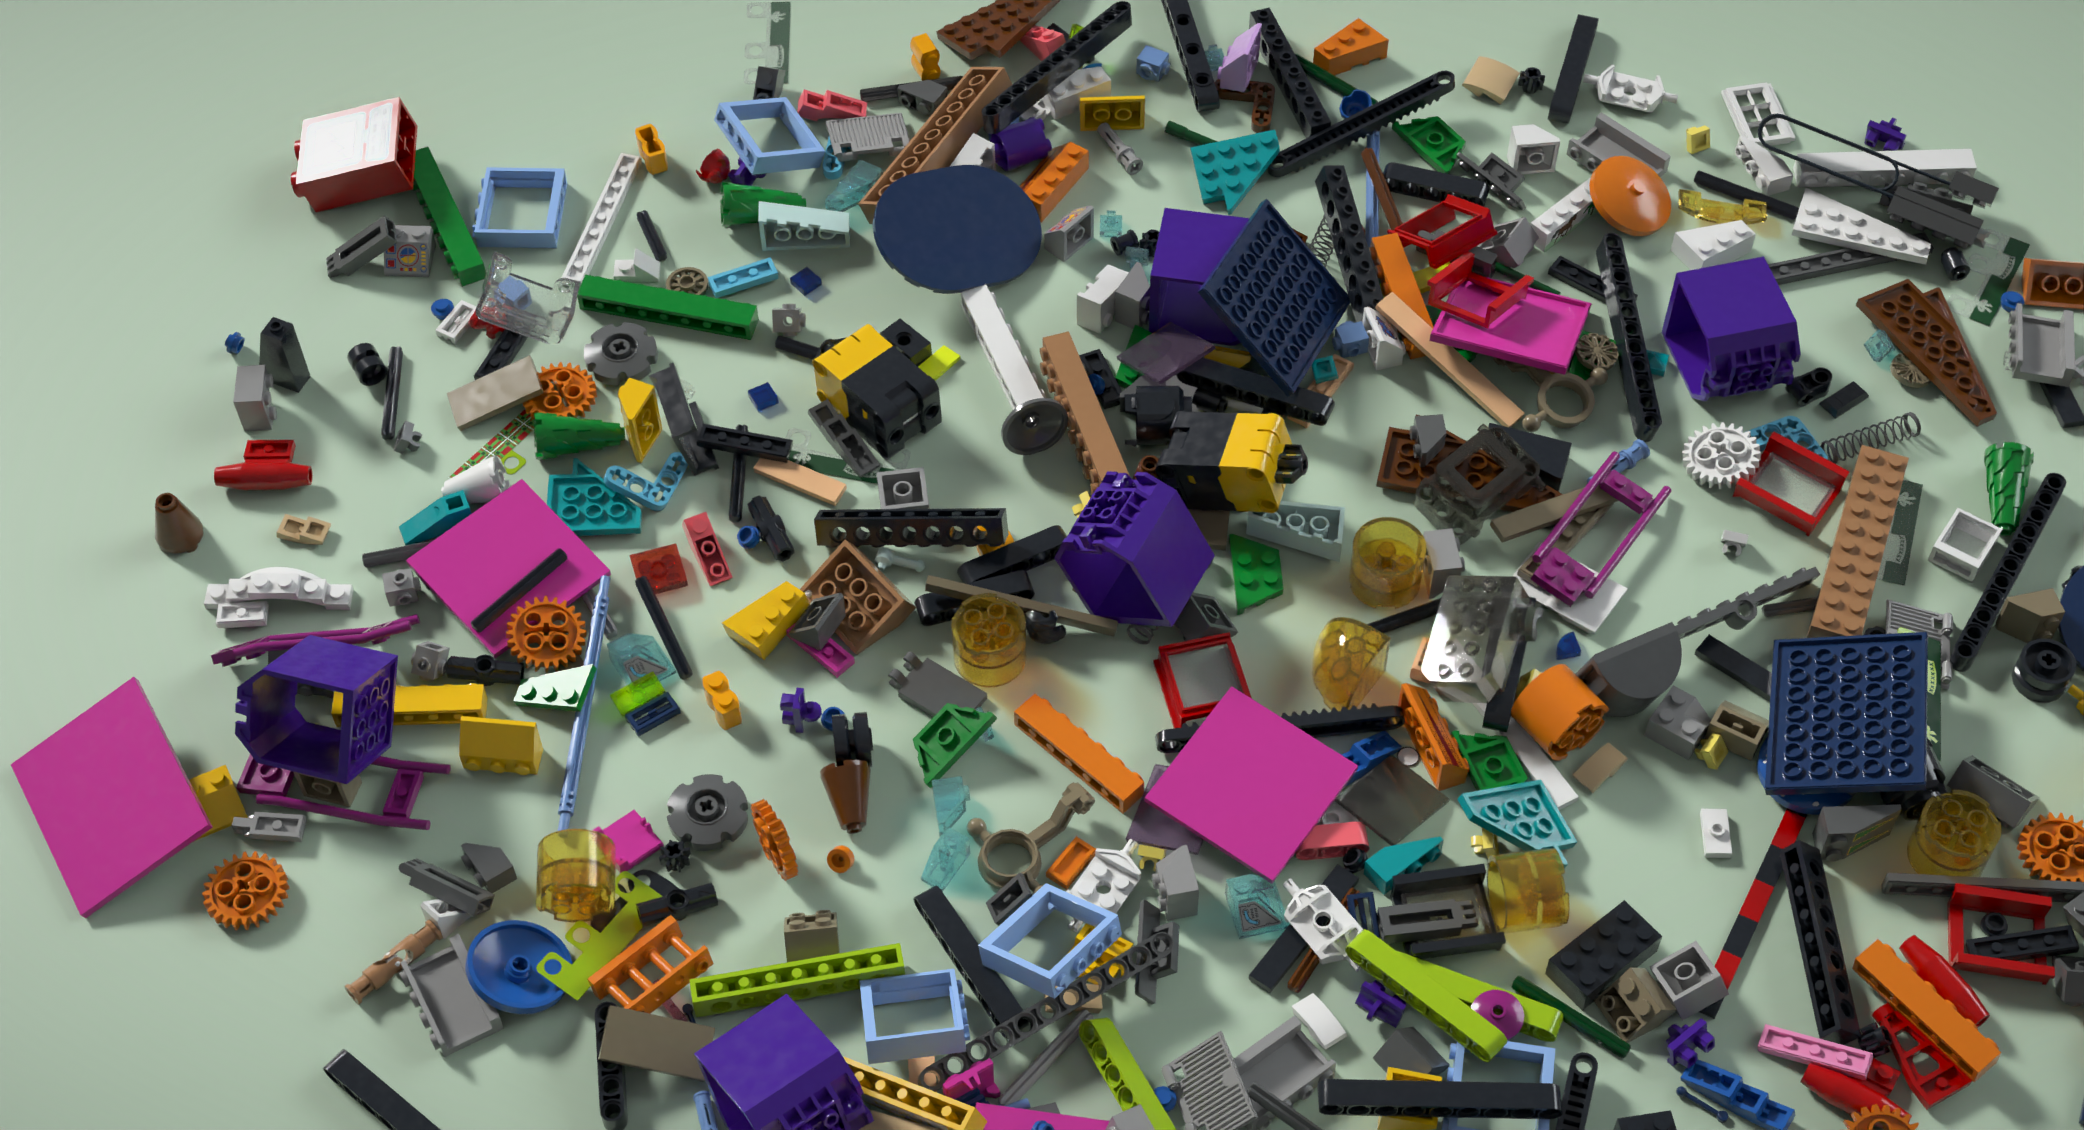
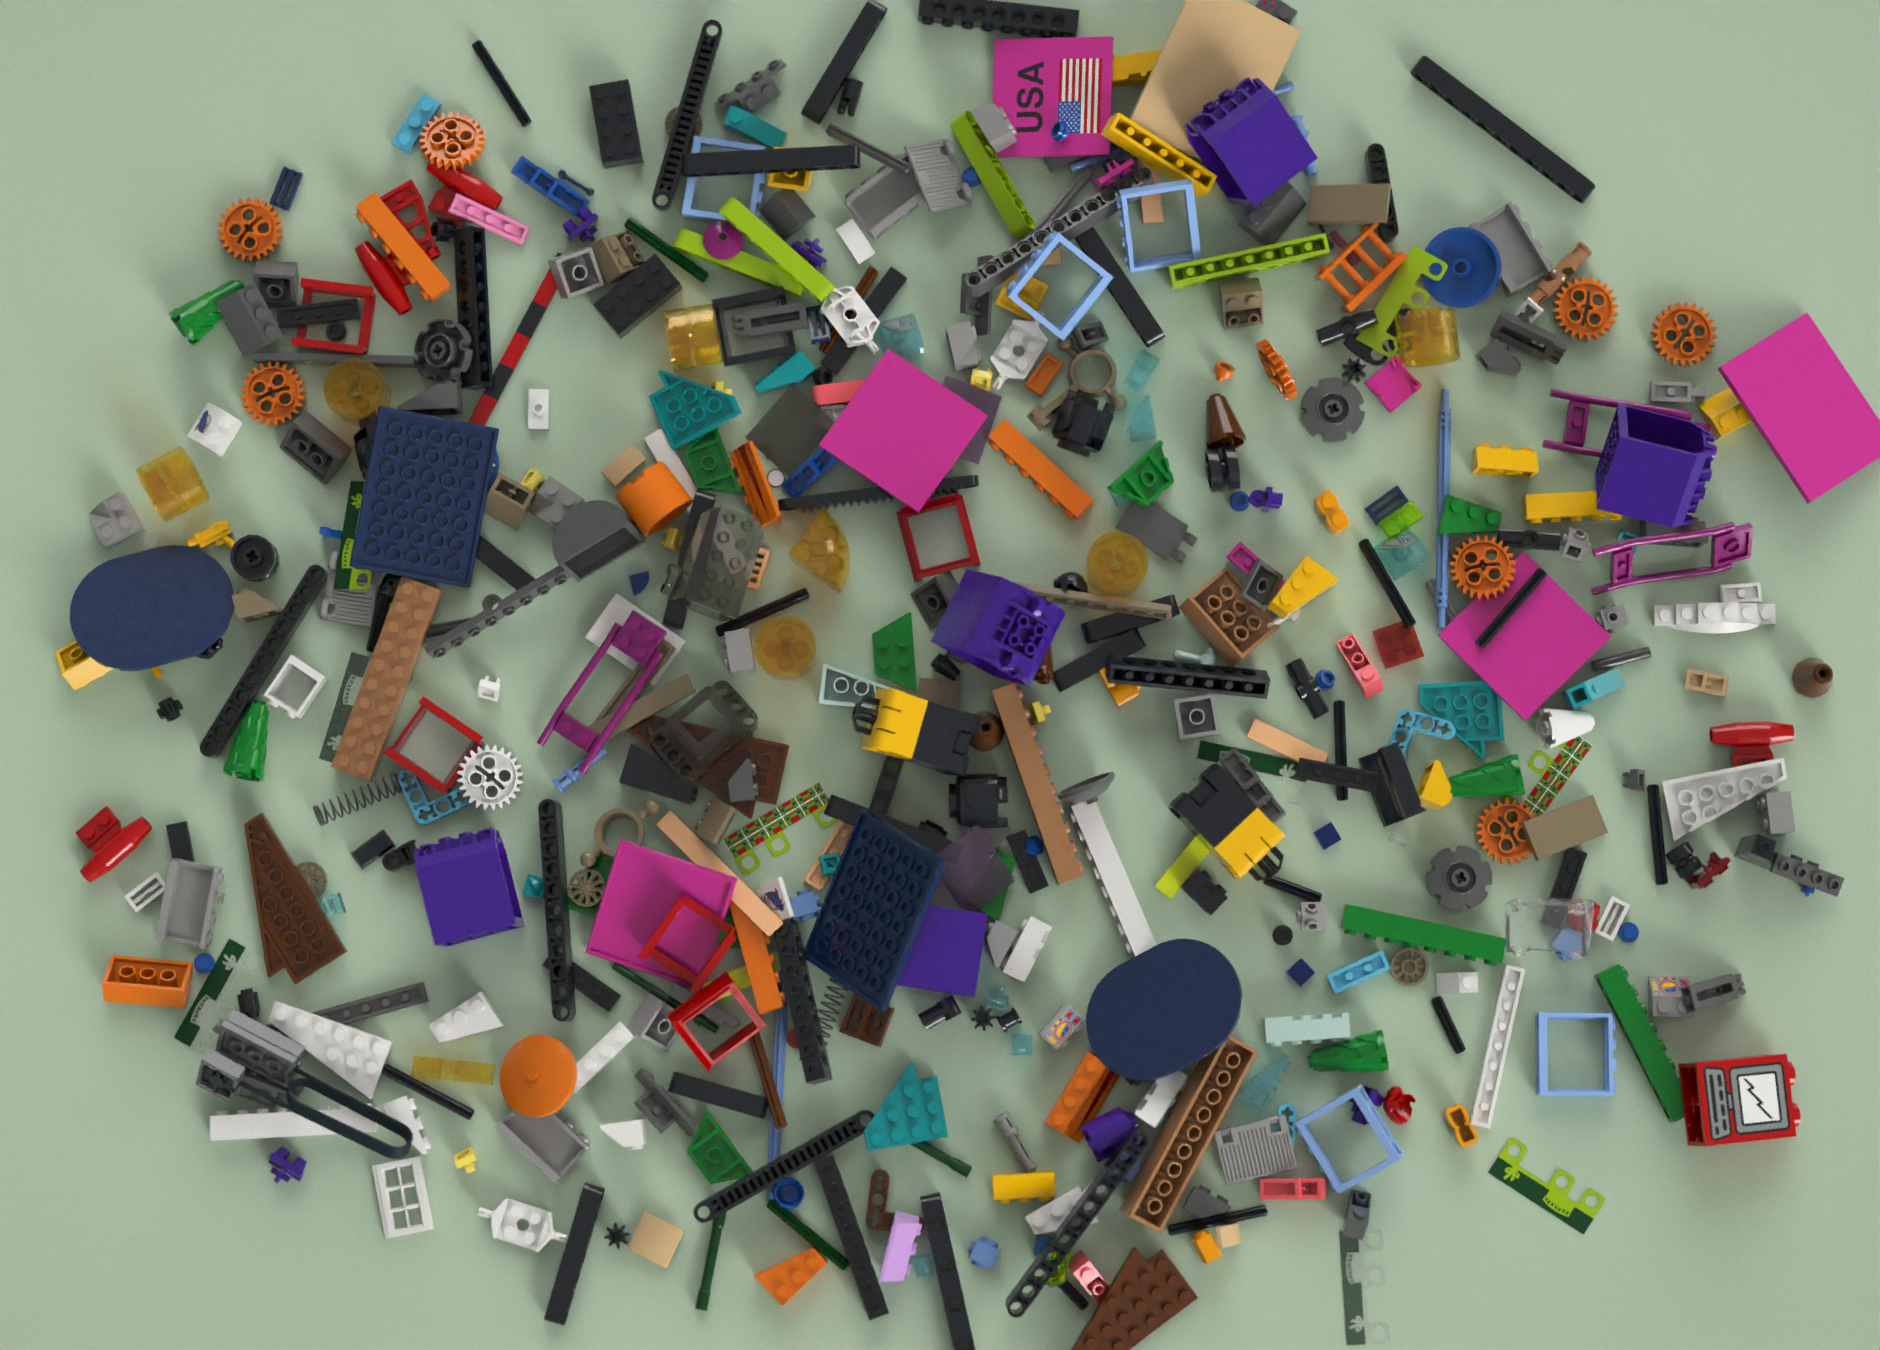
camera: 175 degrees right, 30 degrees up
(232, 346) = (1806, 874): none -> dark grey bracket
(316, 421) = (1708, 795): none -> white wing
(336, 346) = (1715, 866): none -> dark red piece
(344, 918) = (1602, 312): none -> orange gear
(567, 104) = (1545, 1195): none -> piece
(822, 310) = (1282, 935): none -> black plate
(903, 65) = (1228, 1235): none -> tan slope
(1024, 789) = (1081, 425): none -> black piece
(1391, 415) = (771, 826): none -> piece
(1436, 45) = (704, 1291): none -> dark green piece
(1458, 404) = (715, 822): none -> dark tan slope
(1850, 888) = (443, 351): none -> dark grey piece
(1879, 605) = (378, 621): none -> black axle
(1955, 699) = (327, 532): none -> blue tile

